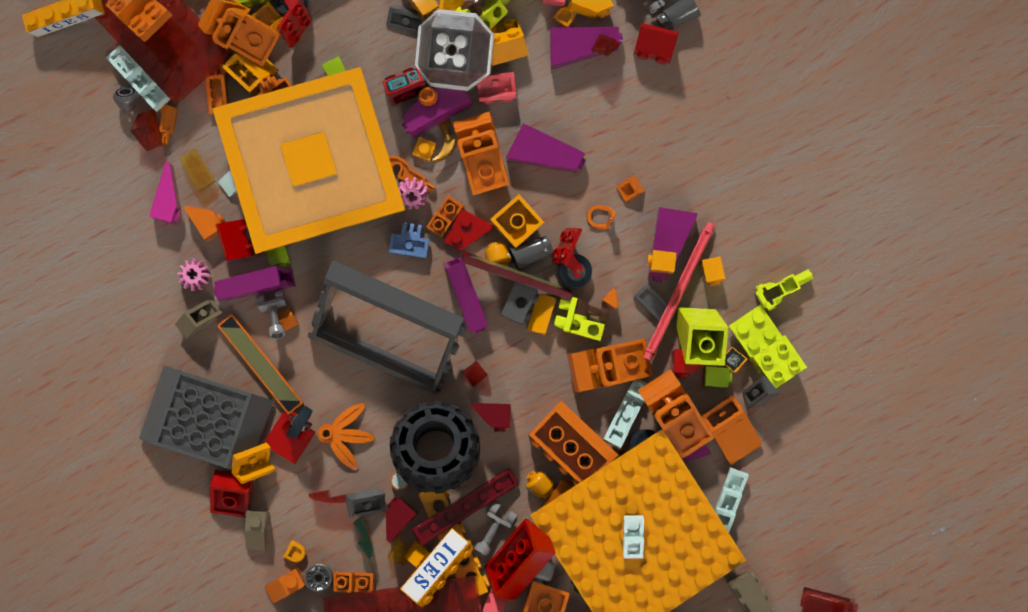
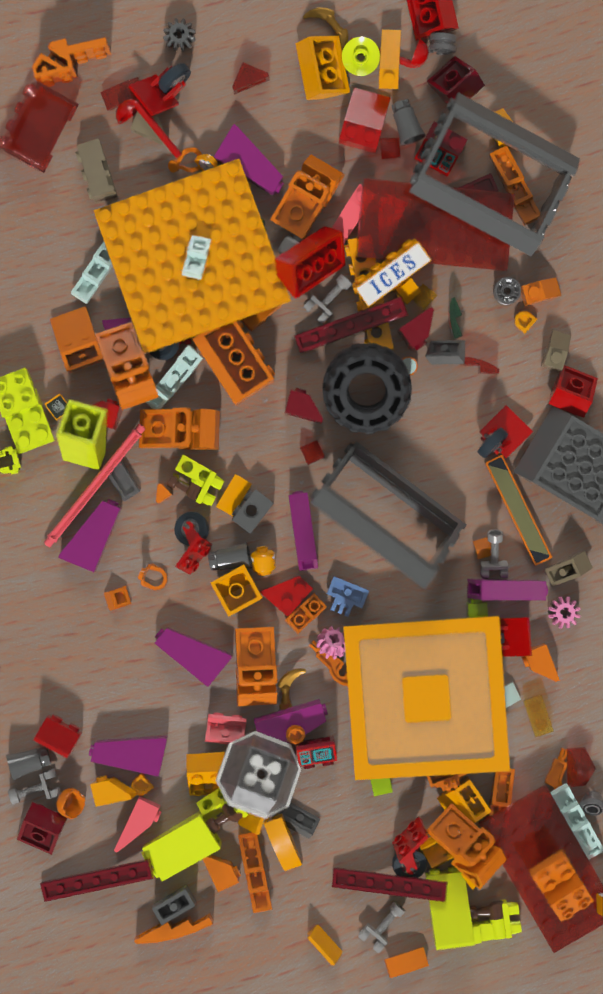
camera: 170 degrees left, 5 degrees up
(166, 201) = (574, 693): dark pink slope -> none
(252, 463) = (546, 414): light orange bracket -> none
(339, 434) = (457, 423): orange plant -> none
(353, 582) = (474, 279): orange slope -> none
(424, 149) = (310, 684): light orange plate -> none
(516, 275) = (249, 537): dark red tile -> none
(540, 484) = (274, 330): light orange head -> none
(605, 45) = (108, 745): clear red slope -> none
(662, 262) = (104, 516): light orange brick -> none
(712, 271) = (57, 497): light orange brick -> none
(716, 377) = (78, 392): lime brick -> none
(759, 393) = (40, 367): dark grey slope -> none

